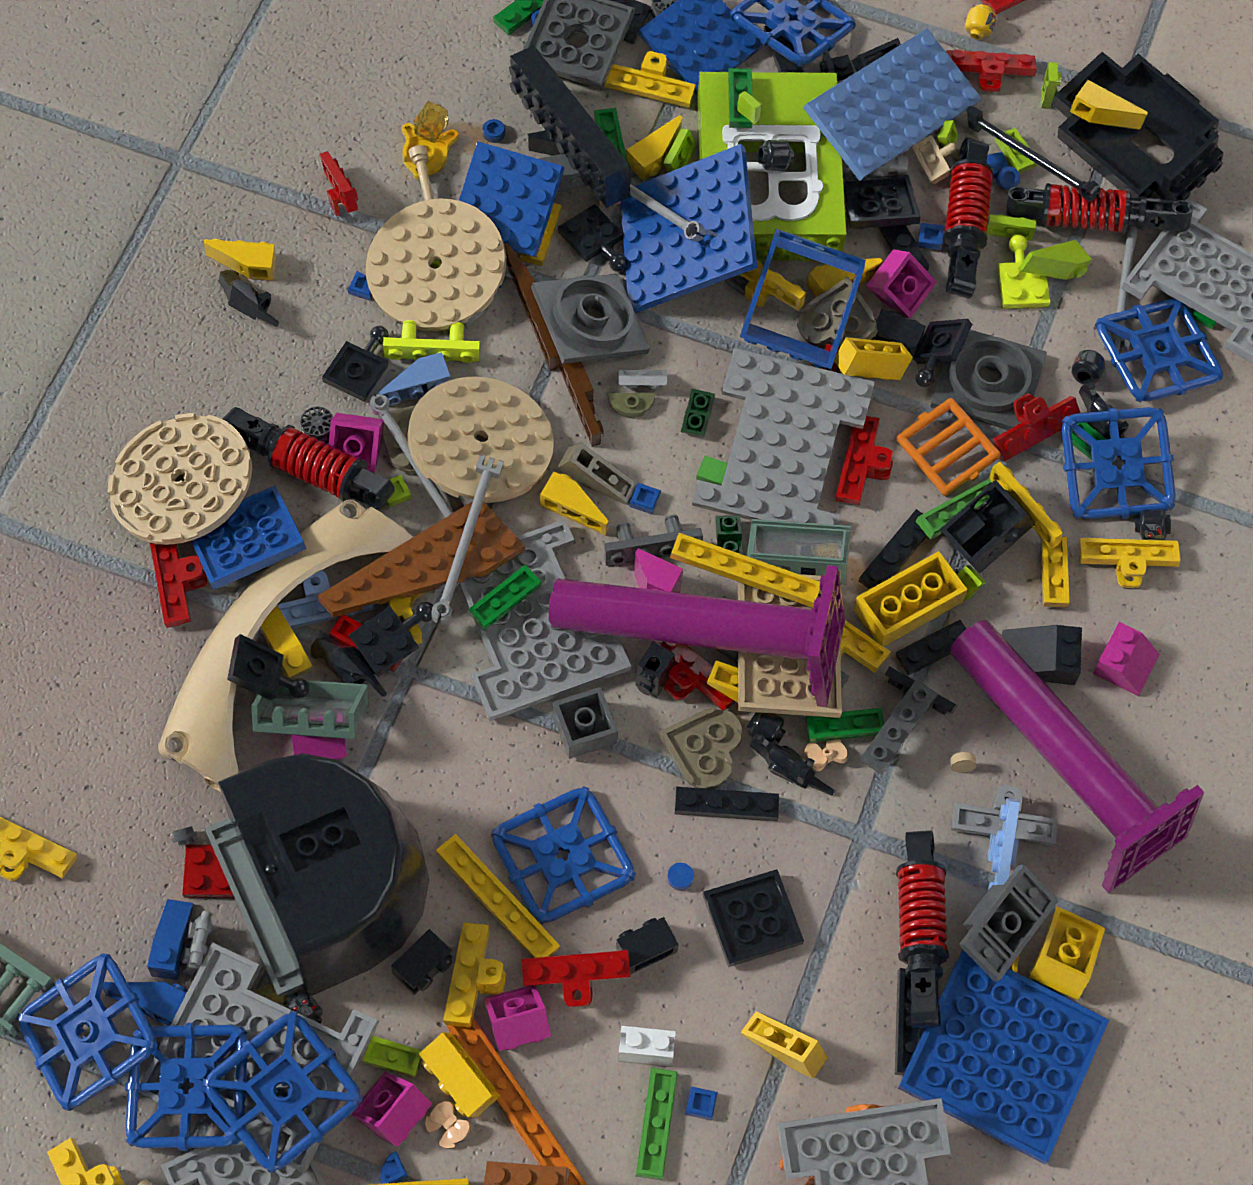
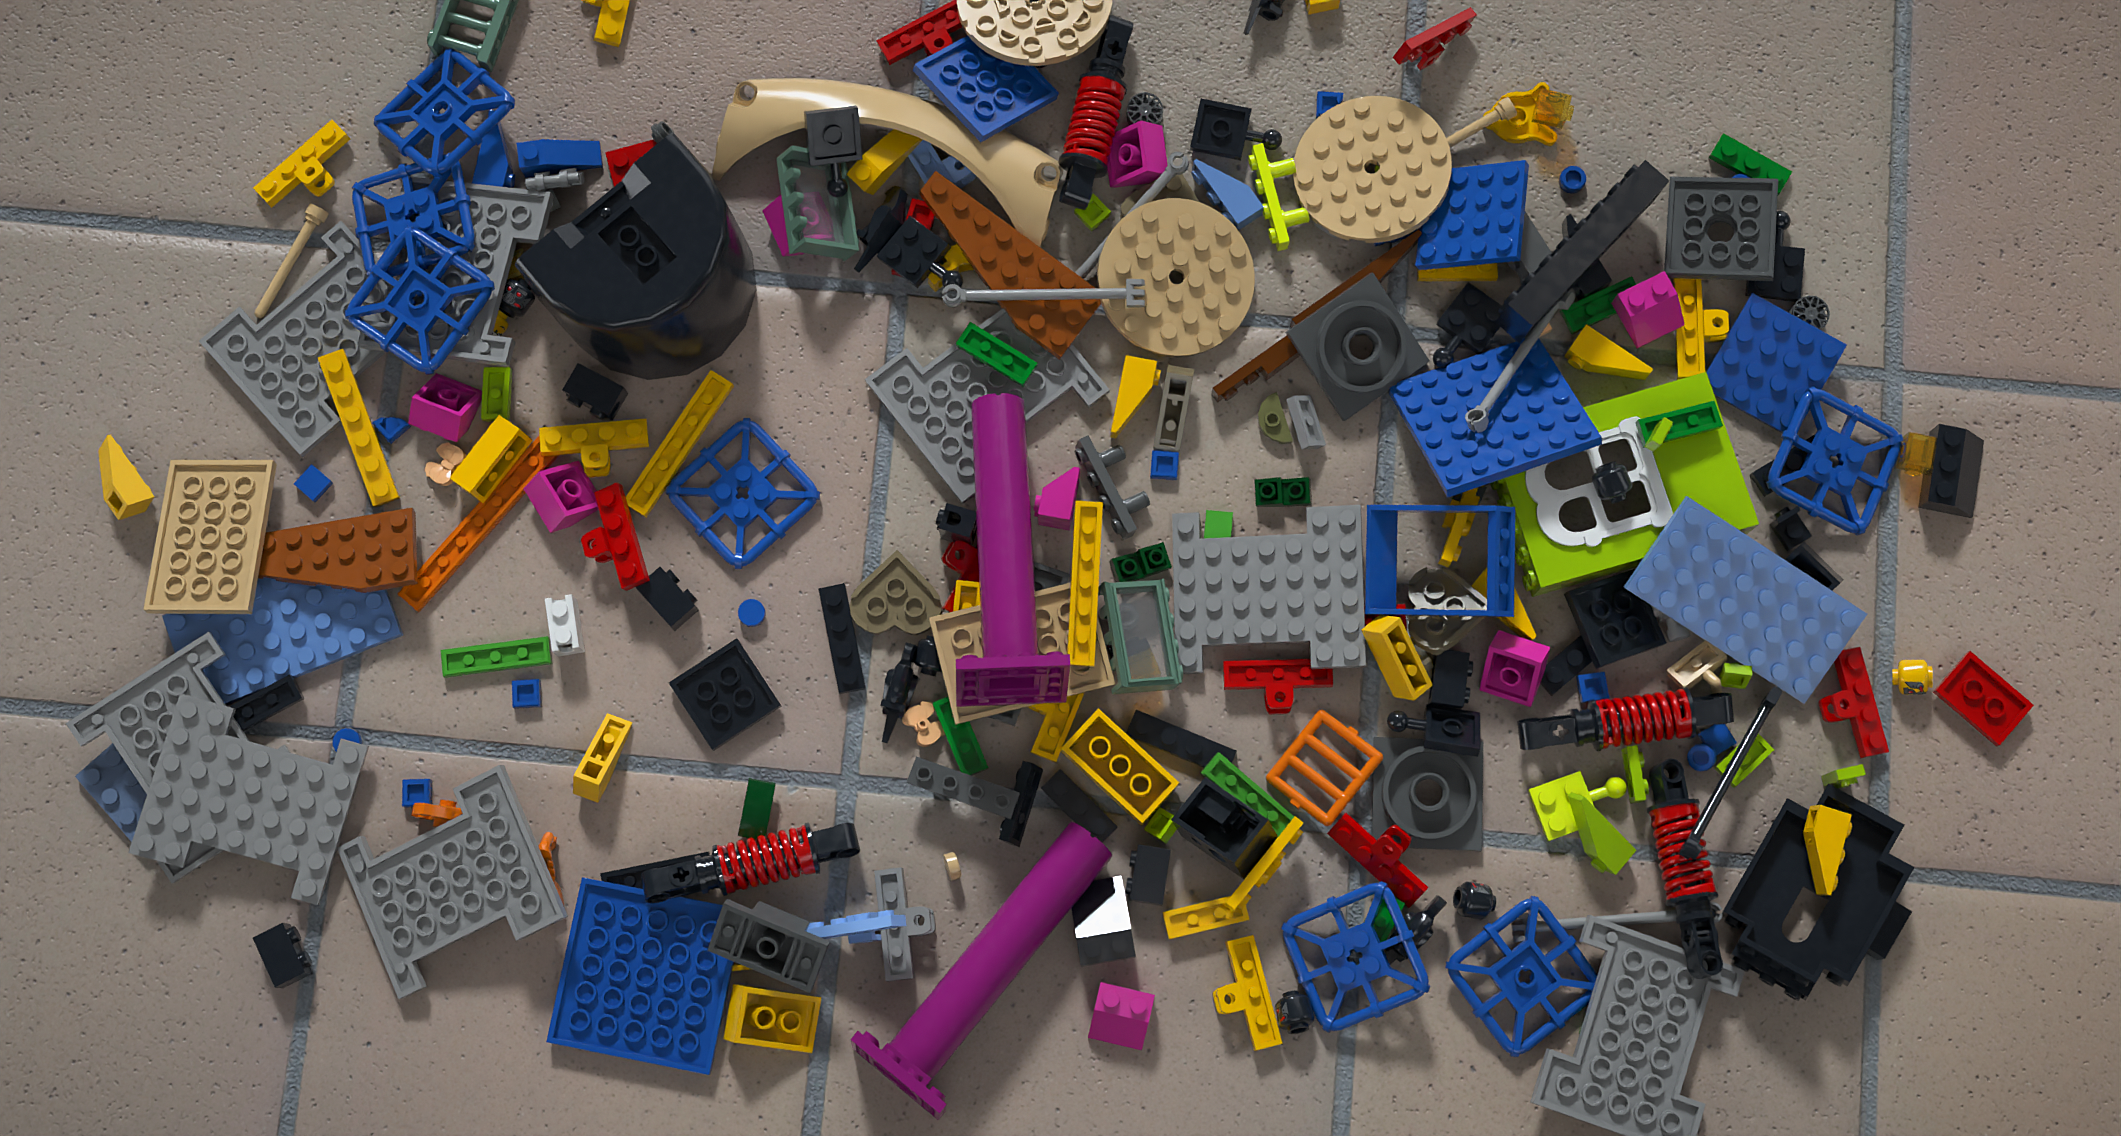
camera: 80 degrees right, 15 degrees up
(584, 722) = (883, 472): dark grey brick -> none
(628, 102) = (1649, 309): none -> dark pink slope
(680, 151) = (1605, 384): lime plate -> none
(869, 914) = (756, 808): none -> dark green slope
(1009, 604) = (1149, 874): none -> black hinge

